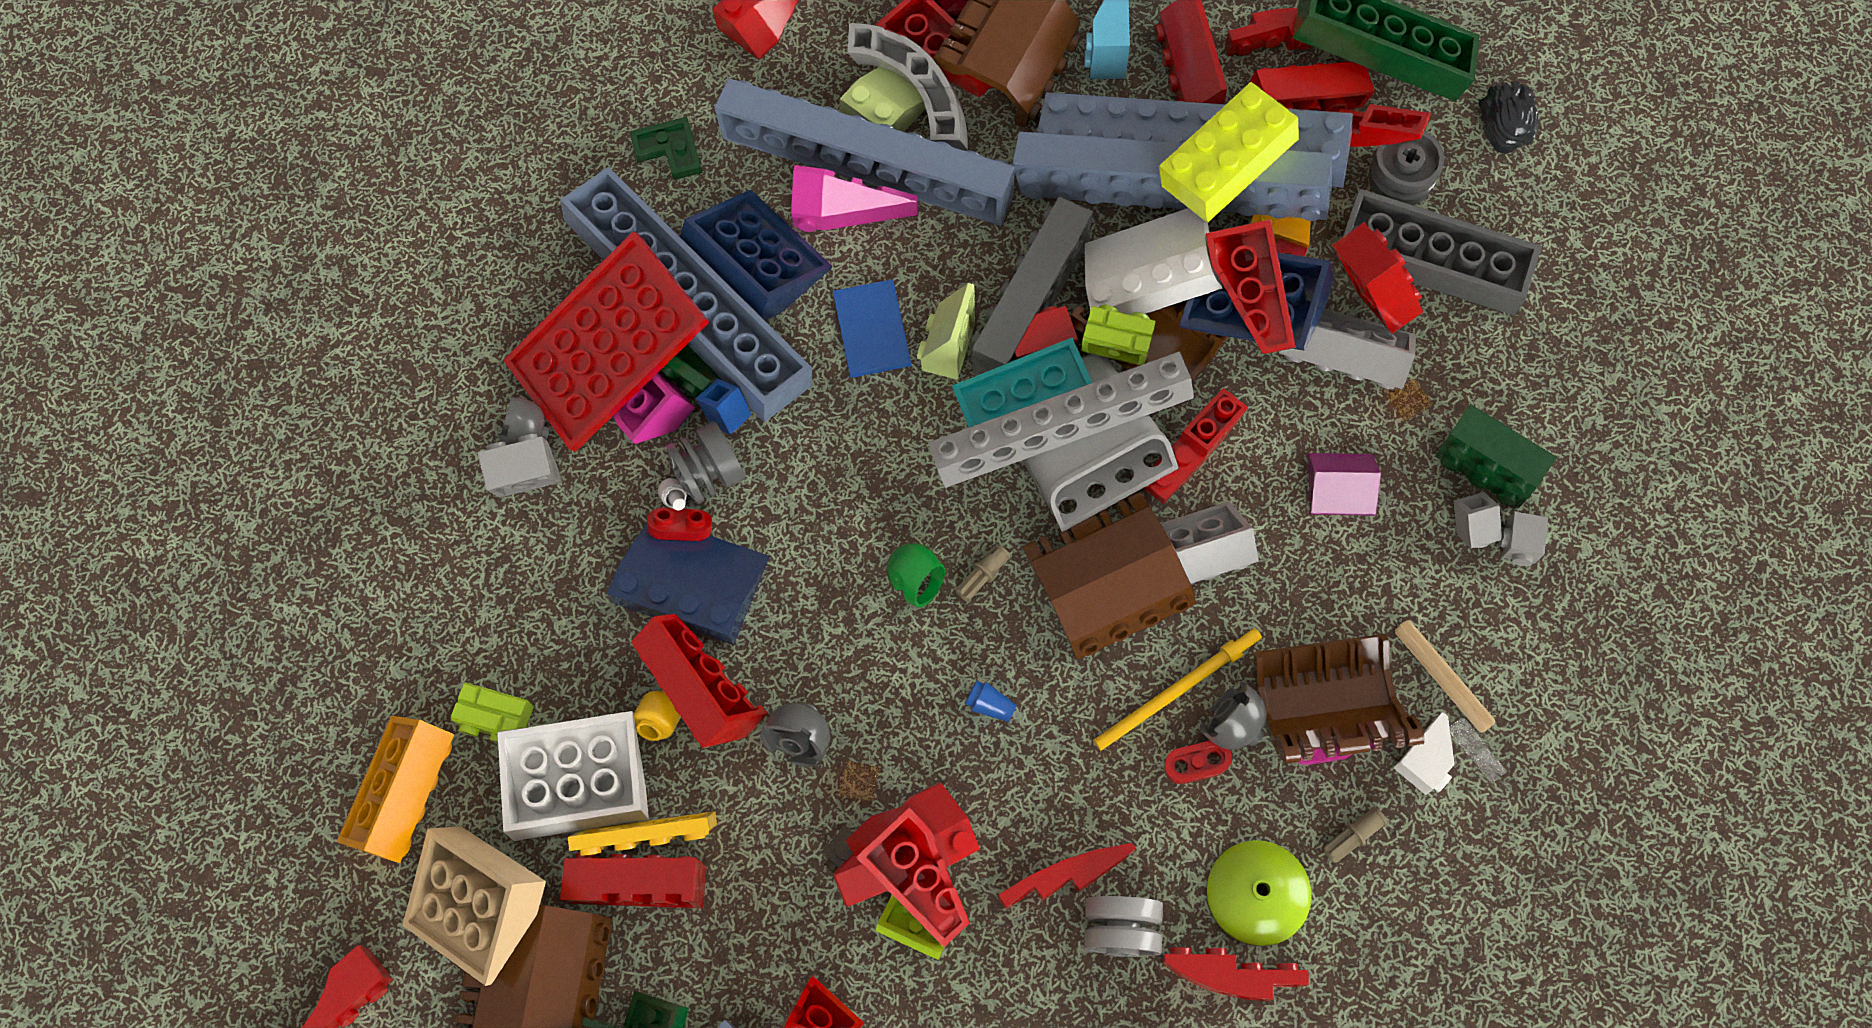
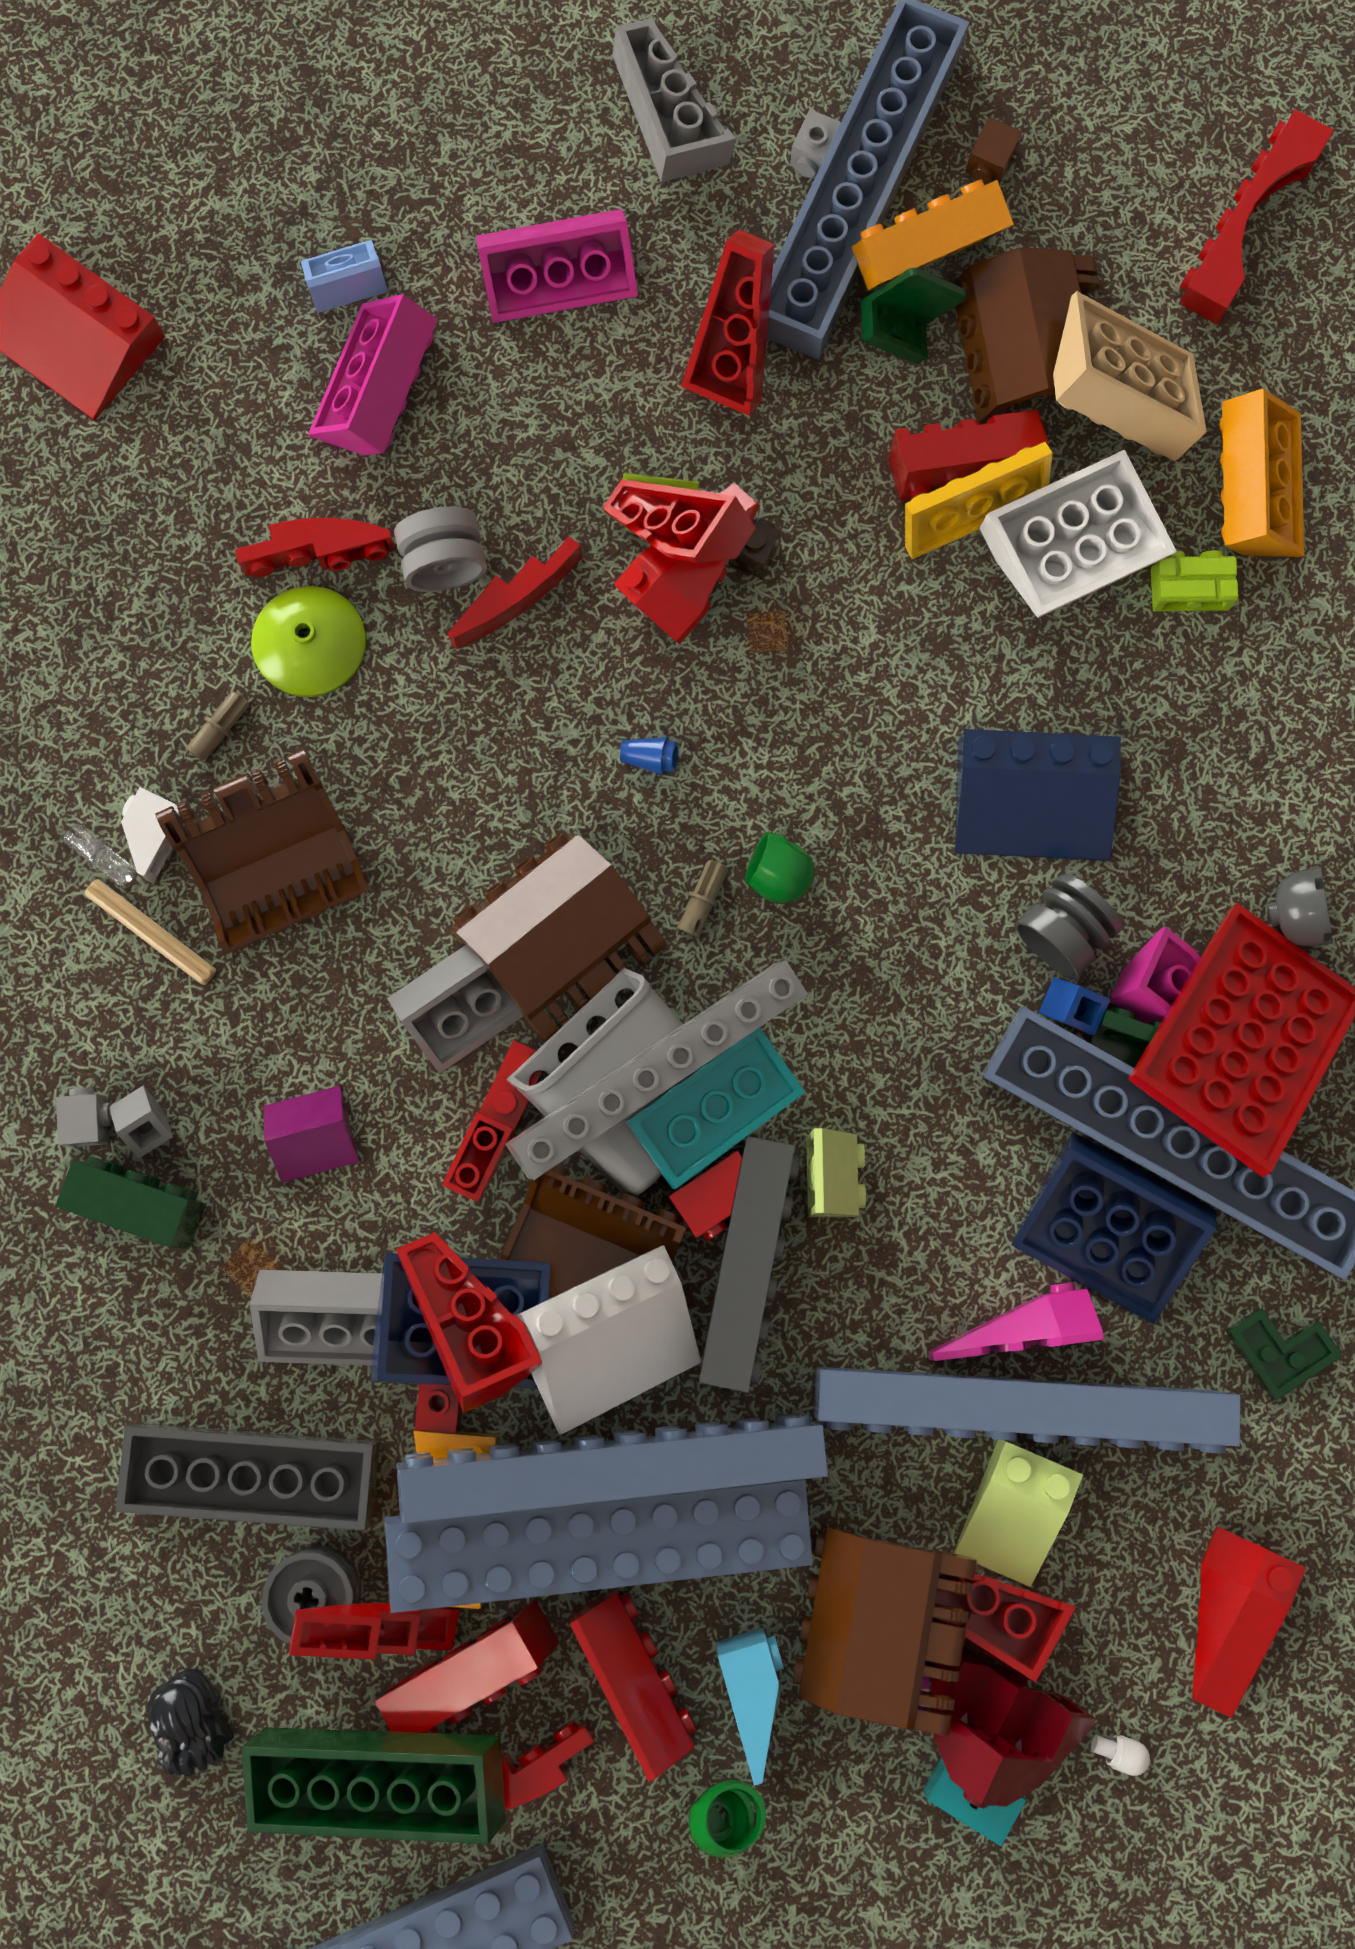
camera: 160 degrees right, 10 degrees up
(518, 466) = (1284, 850): light grey slope -> none
(656, 716) = (1011, 630): yellow head -> none
(672, 494) = (1094, 879): white cylinder -> none
(679, 524) = (1072, 851): red plate -> none
(695, 682) = (980, 666): red wedge -> none
(798, 732) = (849, 656): dark grey cylinder -> none
(872, 328) = (933, 1173): blue tile -> none
(899, 54) = (980, 1534): light grey brick -> none
(1118, 334) = (618, 1205): lime brick -> none
(1196, 761) = (403, 751): red plate -> none
(1229, 152) = (537, 1486): neon yellow brick -> none
(1229, 653) = (397, 889): yellow bar -> none
(1237, 719) = (372, 806): dark grey cylinder -> none
(1379, 277) = (314, 1394): red brick -> none

